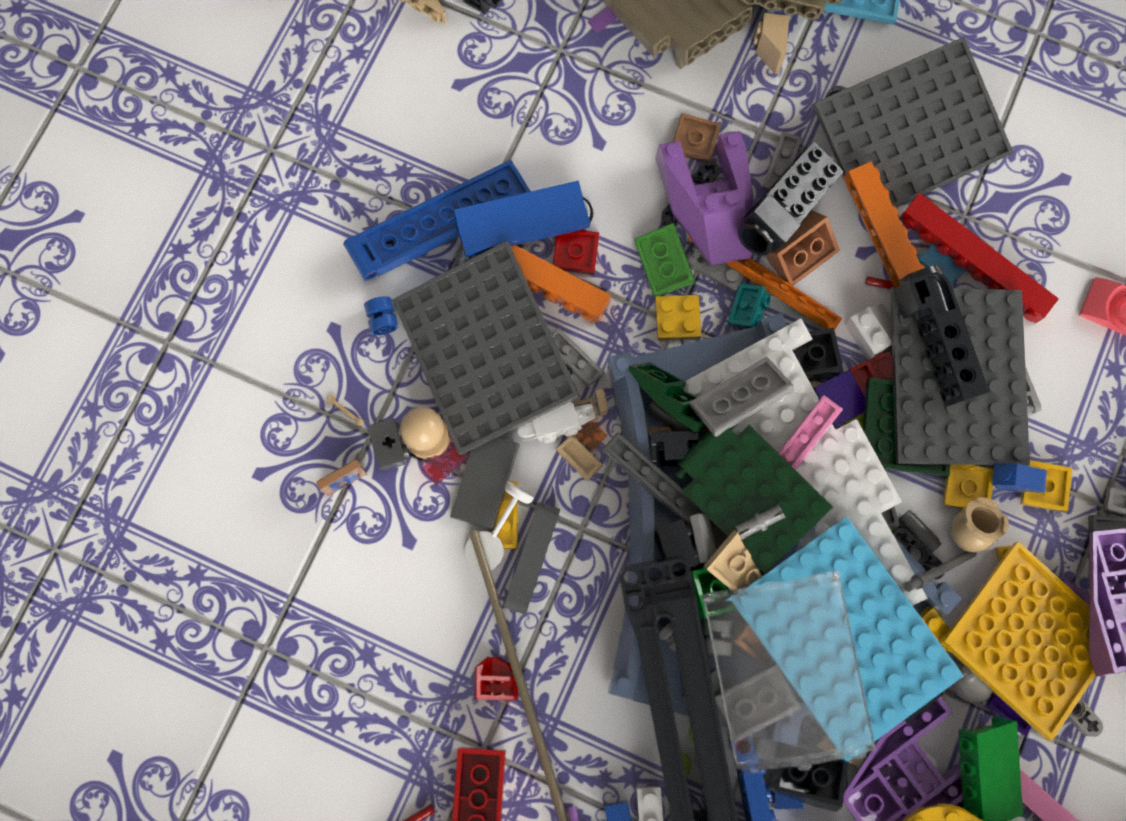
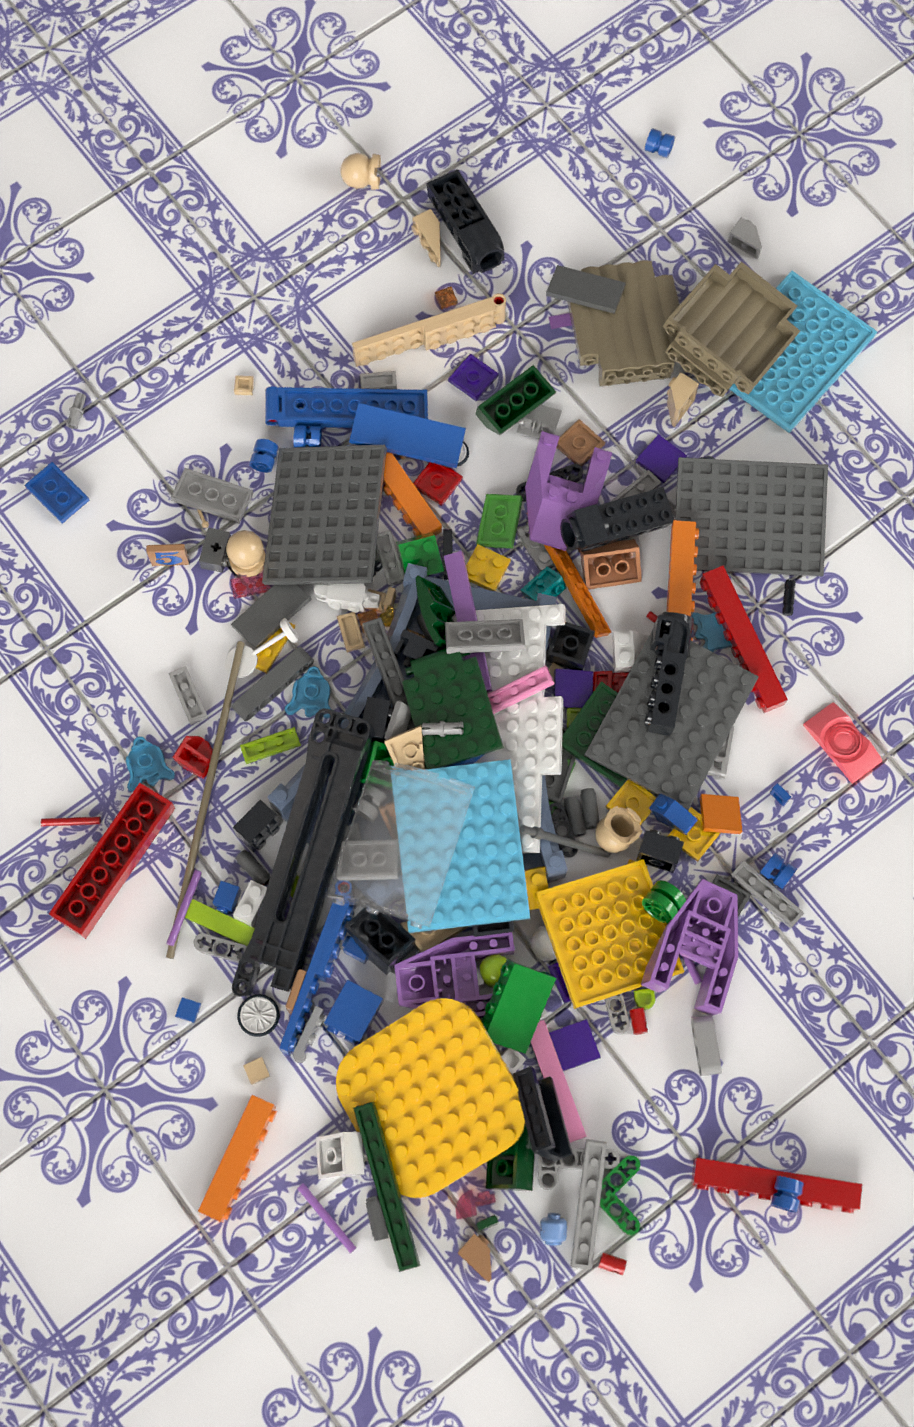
camera: 30 degrees right, 5 degrees down
(148, 369) = (76, 411): none -> light grey axle
(178, 470) = (57, 492): none -> blue plate
(314, 250) = (244, 385): none -> tan tile
(349, 386) = (212, 495): none -> light grey tile
(408, 274) = (301, 435): none -> blue wheel
(446, 718) = (147, 764): none -> dark azure tile
(449, 619) = (188, 695): none -> light grey plate
(453, 175) = (378, 380): none -> light grey tile
(472, 52) = (446, 297): none -> clear orange tile
(483, 94) = (433, 331): none -> tan hinge
(548, 122) = (473, 377): none -> dark purple tile
(566, 625) = (270, 745): none -> lime tile
(577, 547) = (310, 694): none -> dark azure tile
(607, 337) = (422, 552): none -> green slope
(608, 725) = (257, 826): none -> black brick
(609, 422) = (387, 616): none -> clear yellow rock
(610, 127) = (515, 401): none -> dark green slope
(627, 770) = (253, 867): none -> dark grey piece
(632, 323) = (447, 547): none -> black beam
(641, 135) = (539, 420): none -> light grey hinge
(686, 364) = (464, 602): none -> medium lavender tile
(785, 113) = (660, 458): none -> dark purple tile
(929, 515) = (589, 808): none -> dark grey piece
(940, 742) = (491, 969): none -> lime helmet
(992, 192) = (789, 595): none -> black axle
(1031, 522) = (660, 850): none -> black brick
(1059, 773) = (574, 1045): none -> dark purple tile
(1061, 451) = (720, 814): none -> orange tile
(1070, 577) = (663, 901): none -> green wheel
(1099, 686) = (644, 998): none -> lime tile
(1104, 399) = (780, 794): none -> blue tile
(1107, 712) = (638, 1021): none -> red piece

